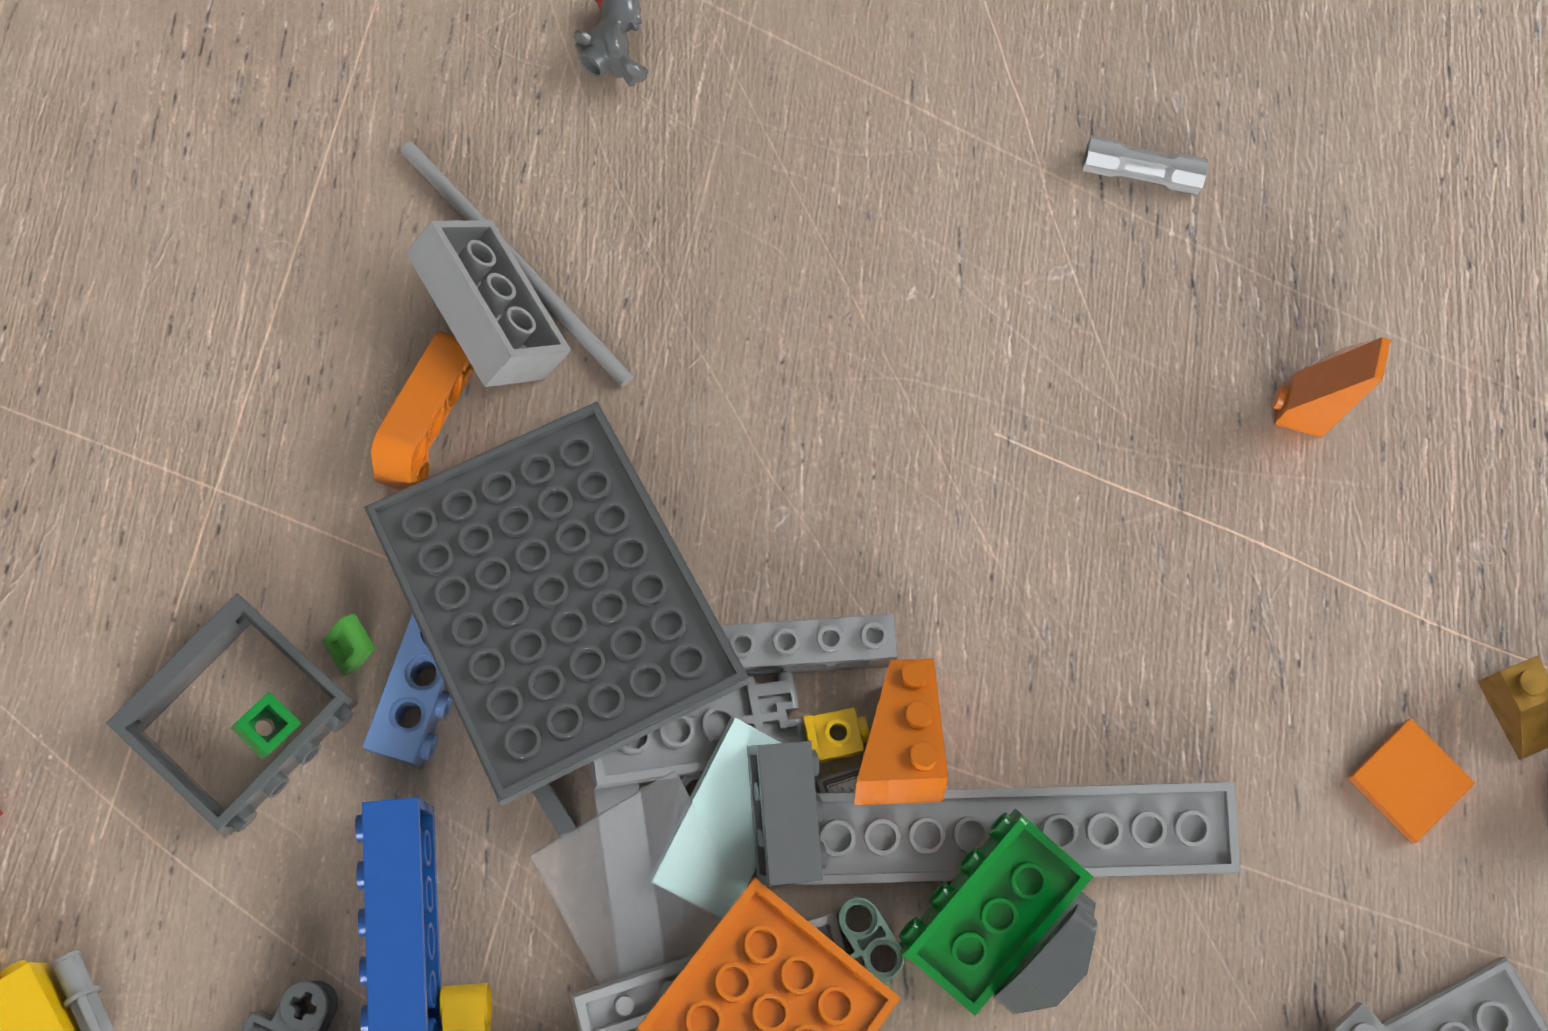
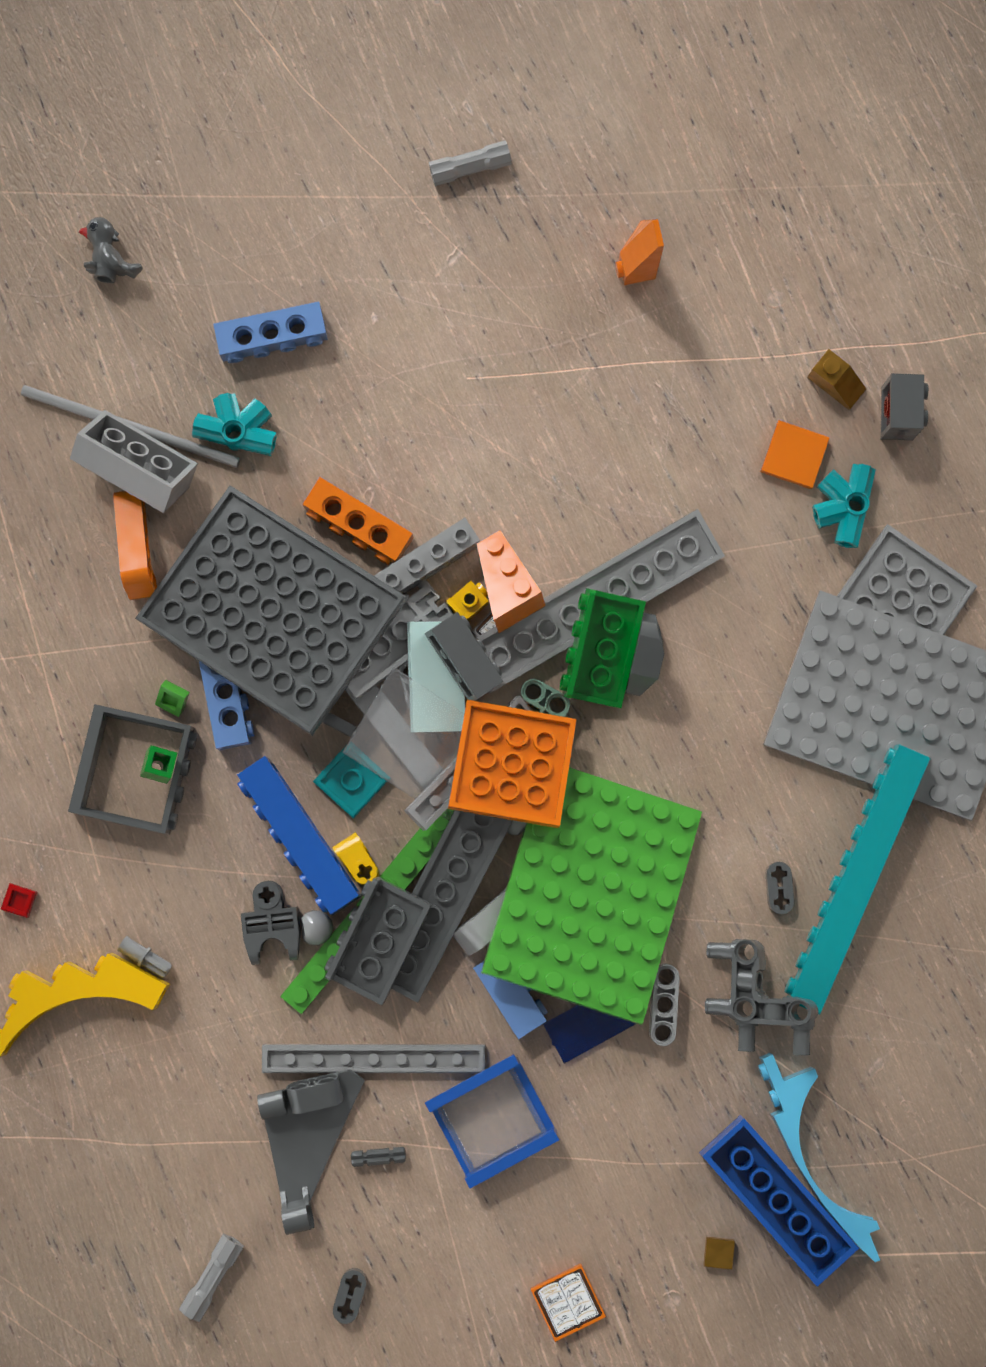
camera: 25 degrees left, 10 degrees up
(518, 906) = (349, 783): none -> teal tile
(651, 320) = (231, 419): none -> teal piece
(719, 482) = (325, 494): none -> orange brick
(752, 220) = (257, 325): none -> medium blue brick
(1445, 893) = (838, 509): none -> teal piece

